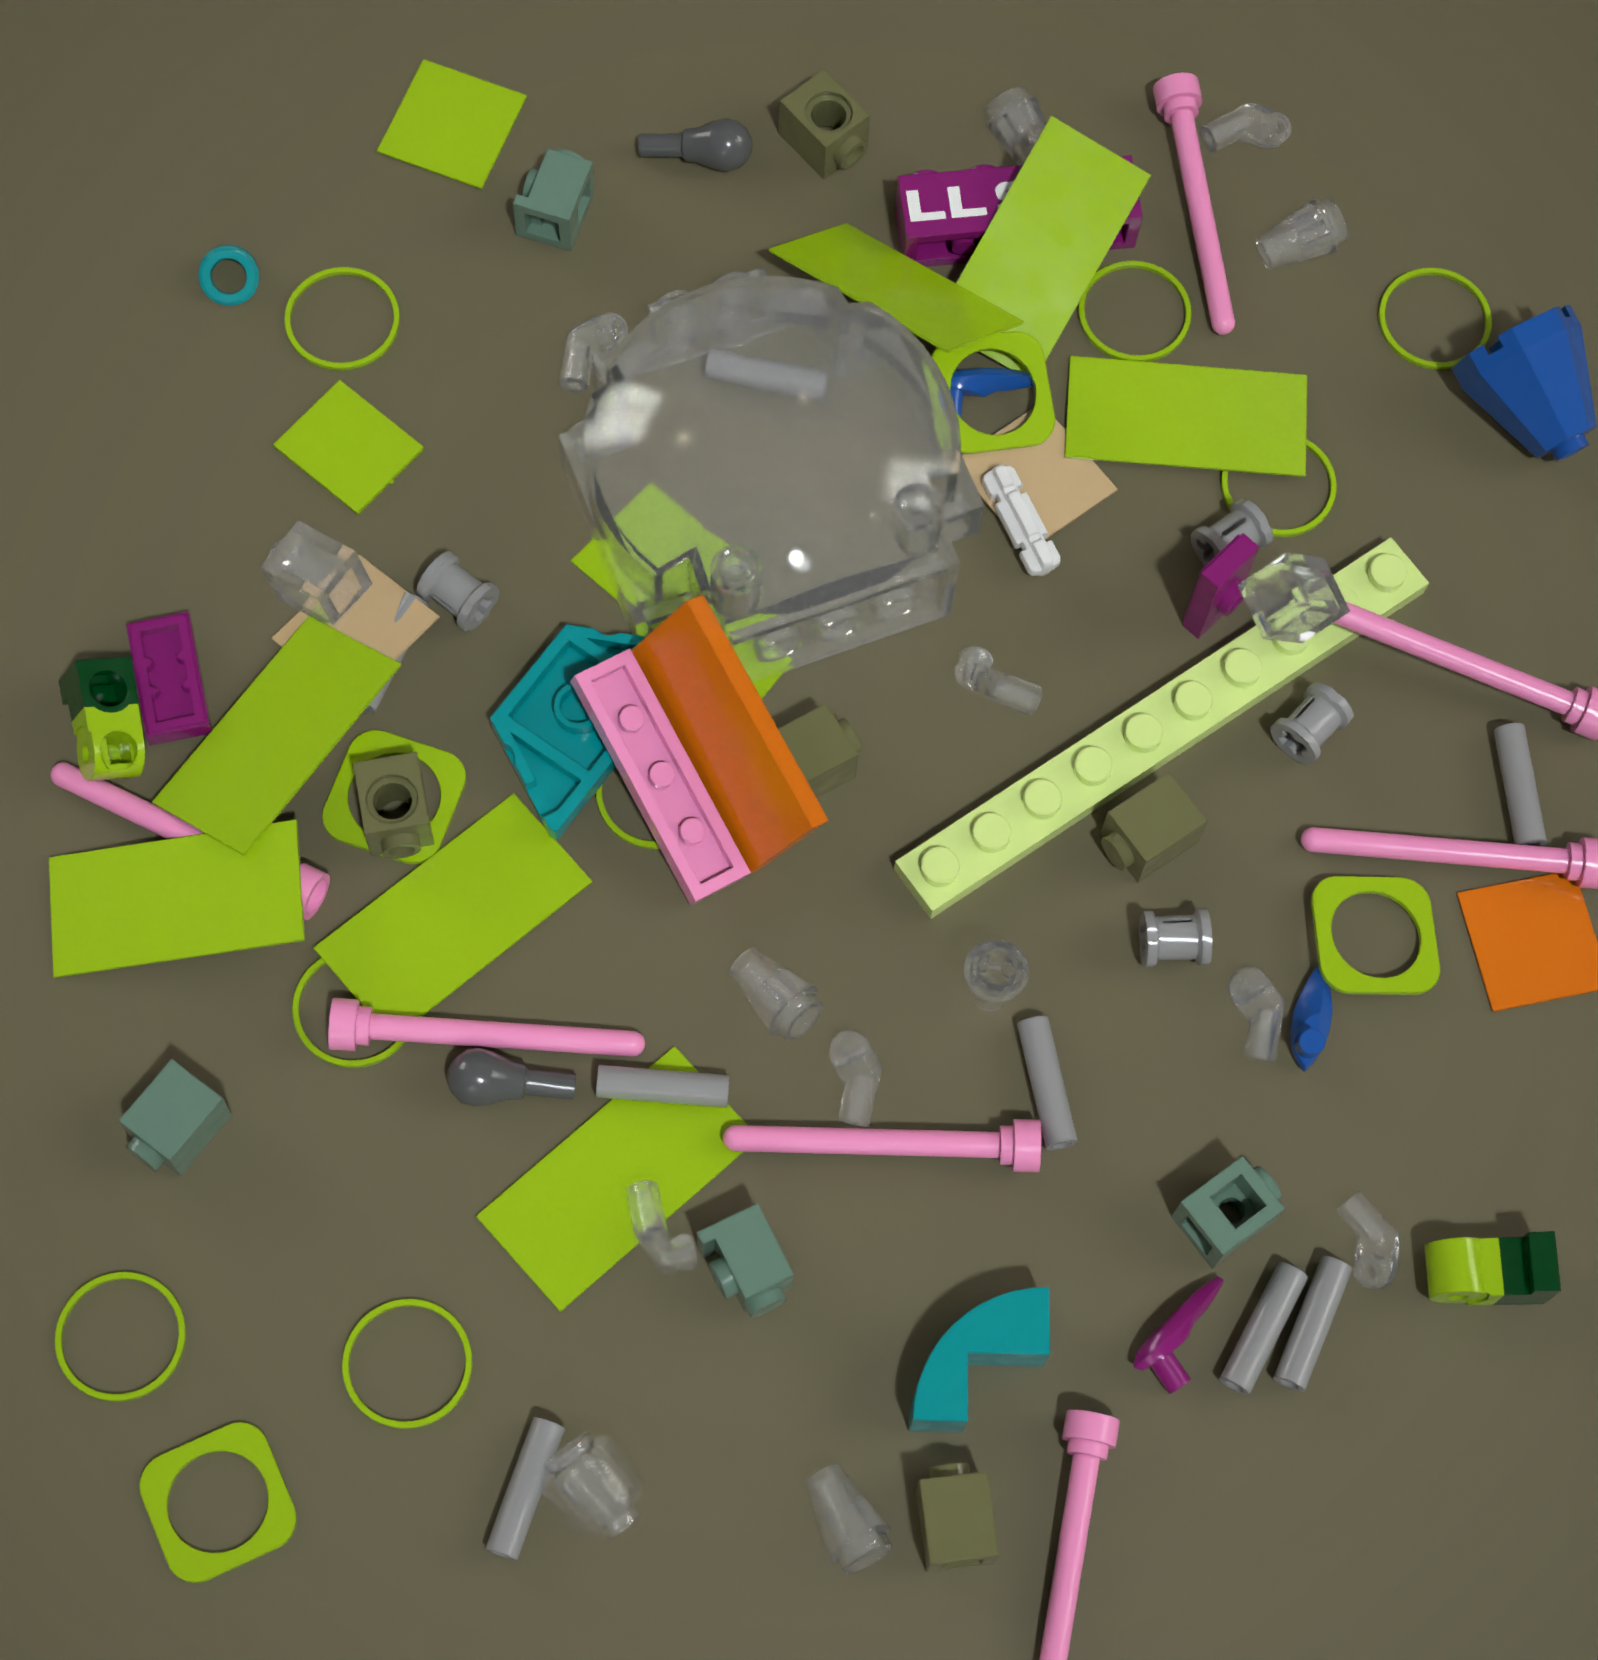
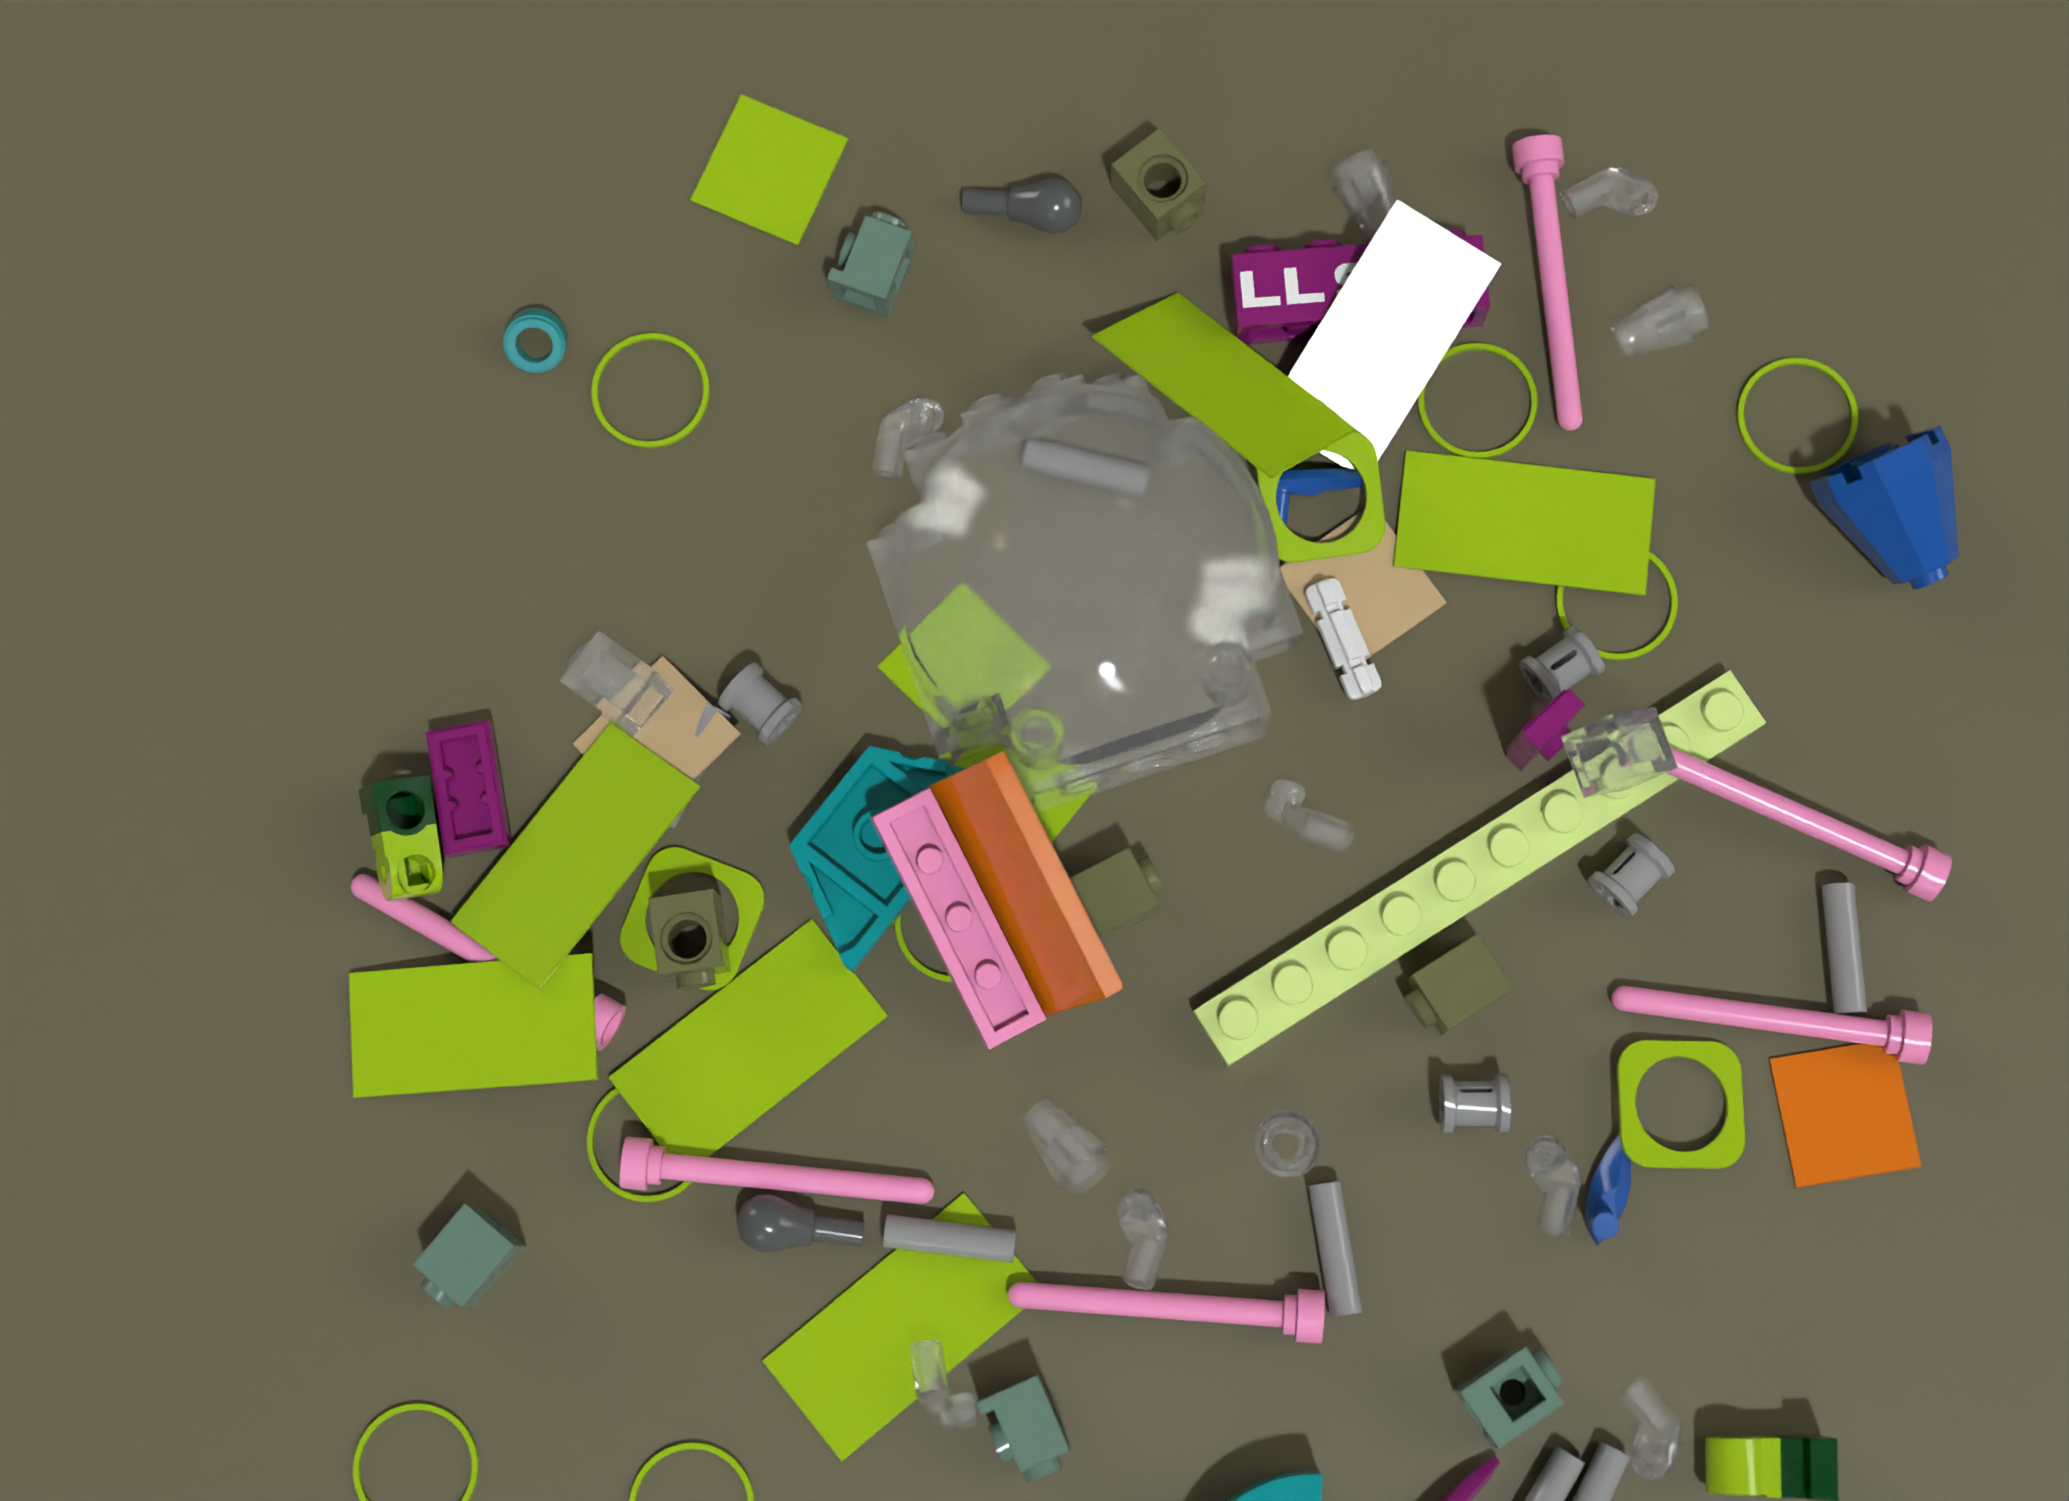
camera: 15 degrees right, 10 degrees up
(348, 447) = (654, 535): lime window -> none

